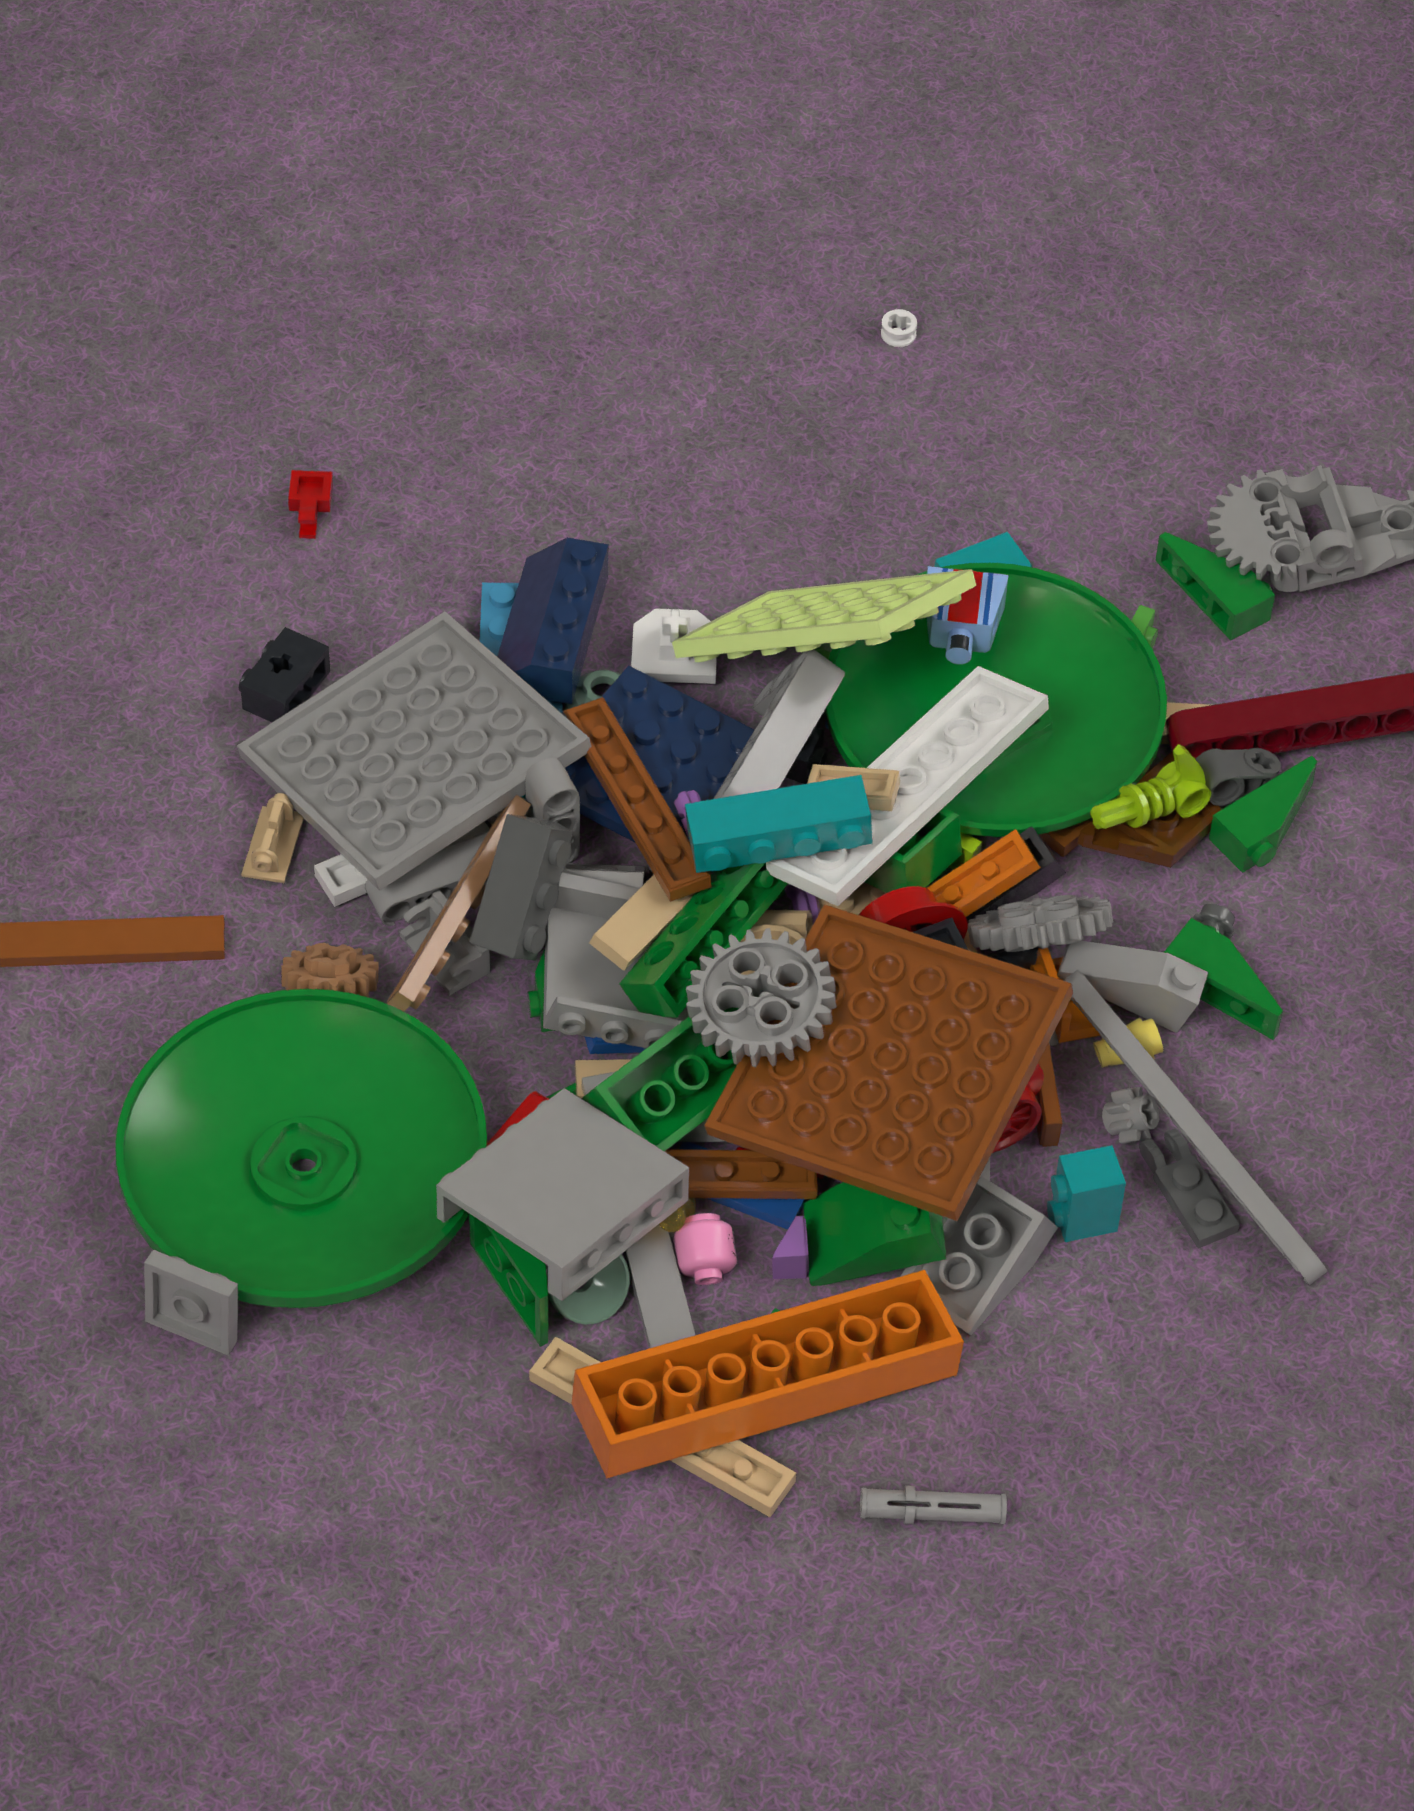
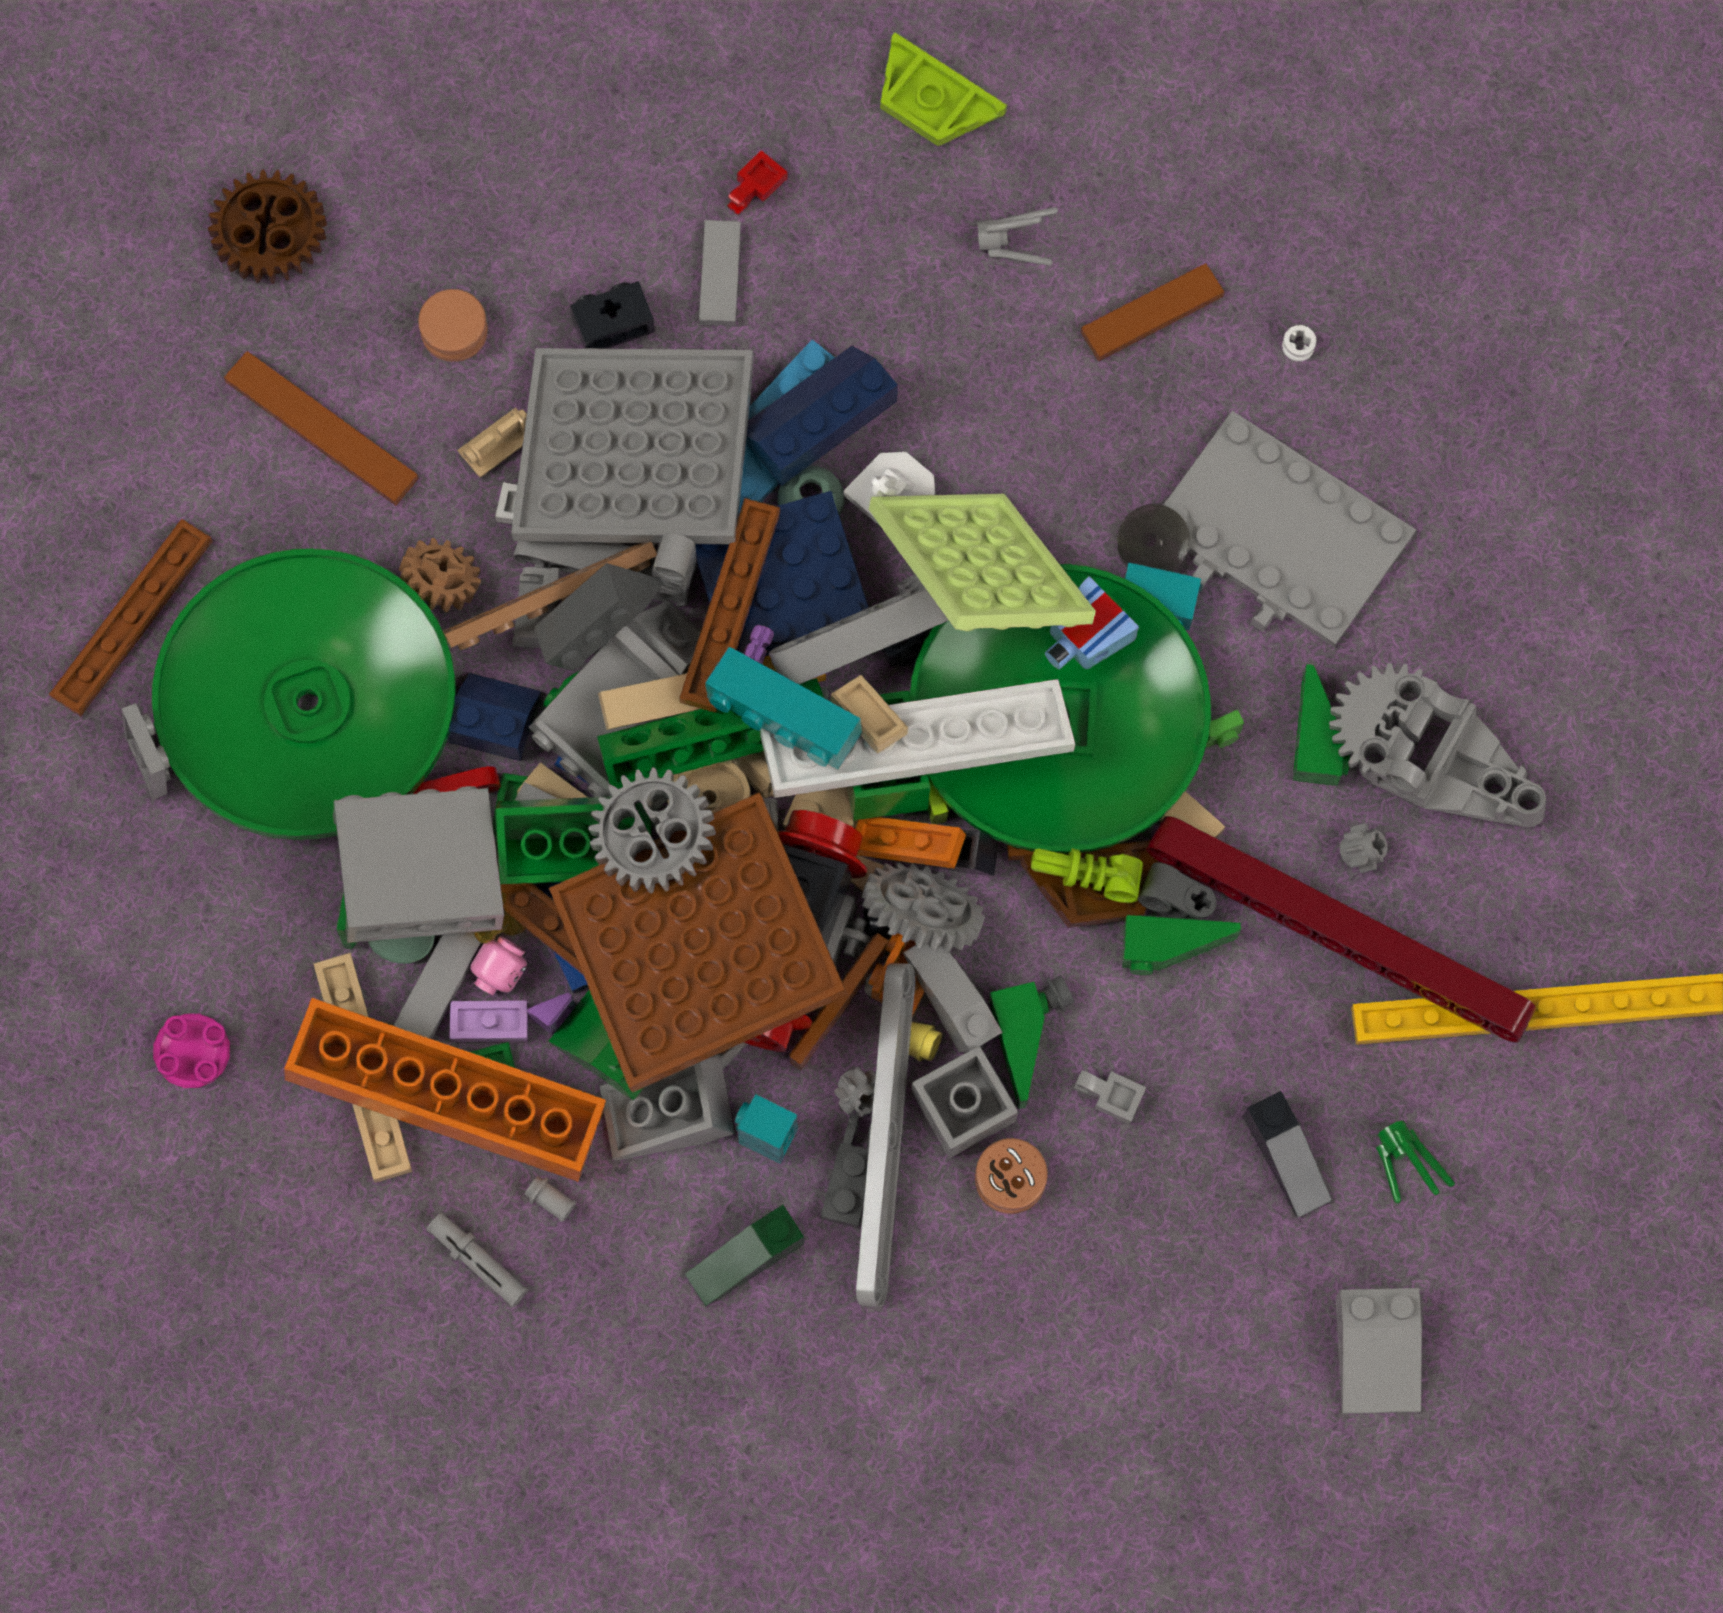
camera: 40 degrees right, 20 degrees up
(55, 1219) = (130, 617): none -> dark orange tile
(139, 778) = (453, 325): none -> nougat head
(345, 588) = (720, 273): none -> light grey tile
(400, 342) = (933, 96): none -> lime wing
(482, 1533) = (191, 1050): none -> dark pink dish
(503, 1056) = (493, 716): none -> dark blue slope
(562, 407) = (994, 234): none -> light grey plant
(744, 1297) = (488, 1021): none -> lavender plate
(753, 383) = (1152, 312): none -> dark orange tile
(909, 536) = (1171, 534): none -> clear smoke dish
(946, 1406) = (550, 1198): none -> light grey pin
(1027, 467) = (1285, 530): none -> light grey hinge
(1170, 1316) = (746, 1255): none -> dark green slope
(1230, 1054) = (964, 1102): none -> light grey brick
(1326, 1088) = (1011, 1176): none -> nougat head
(1345, 640) = (1363, 848): none -> light grey gear
(1345, 963) = (1116, 1096): none -> light grey plate

